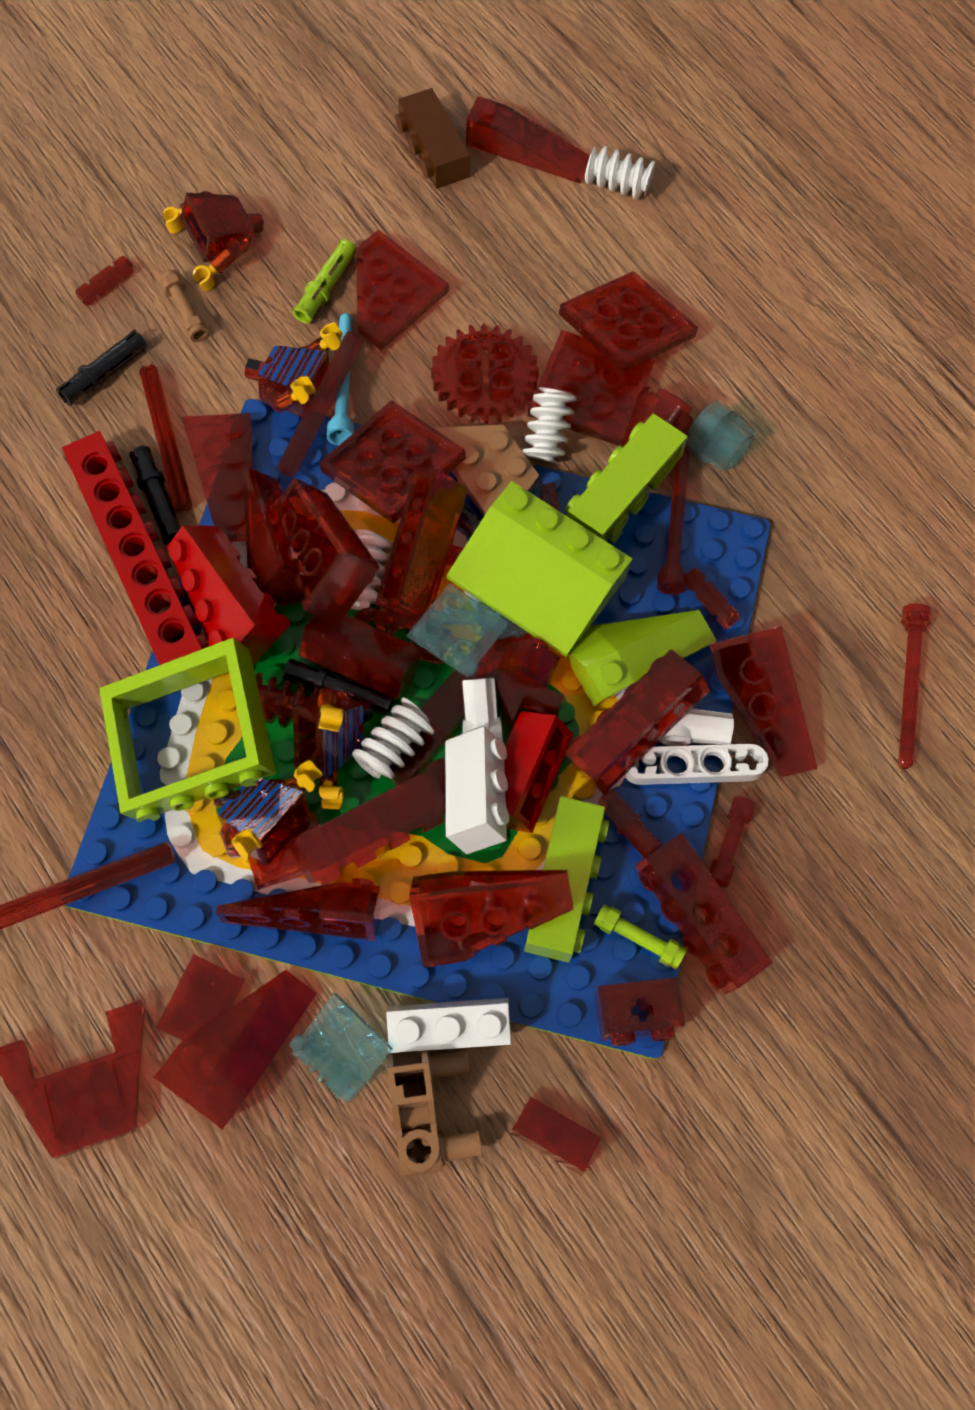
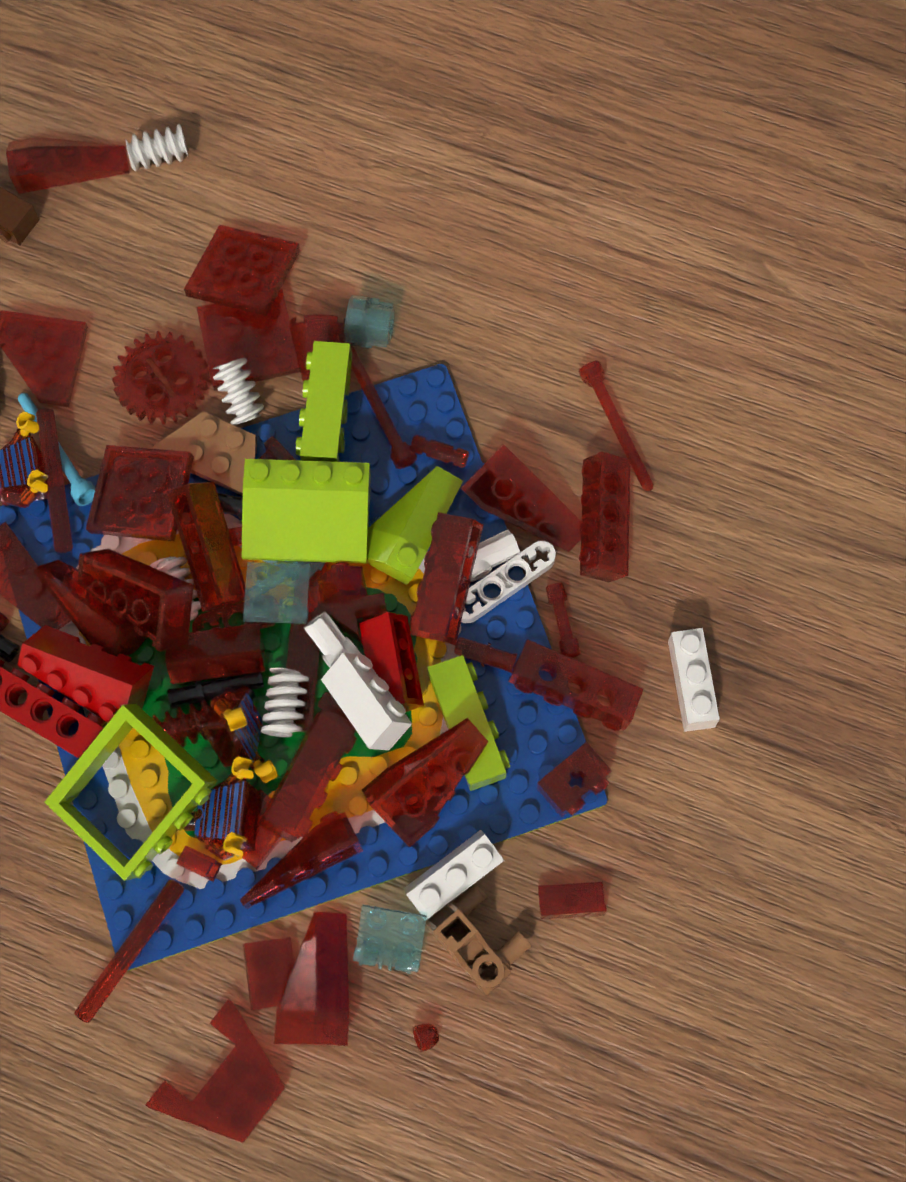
camera: 25 degrees left, 5 degrees up
(205, 845) = (199, 863): none -> clear red piece
(310, 1176) = (425, 1036): none -> clear red hinge
(670, 953) = (570, 727): lime bar -> none
(832, 988) = (693, 680): none -> white brick
(841, 764) = (605, 517): none -> clear red brick

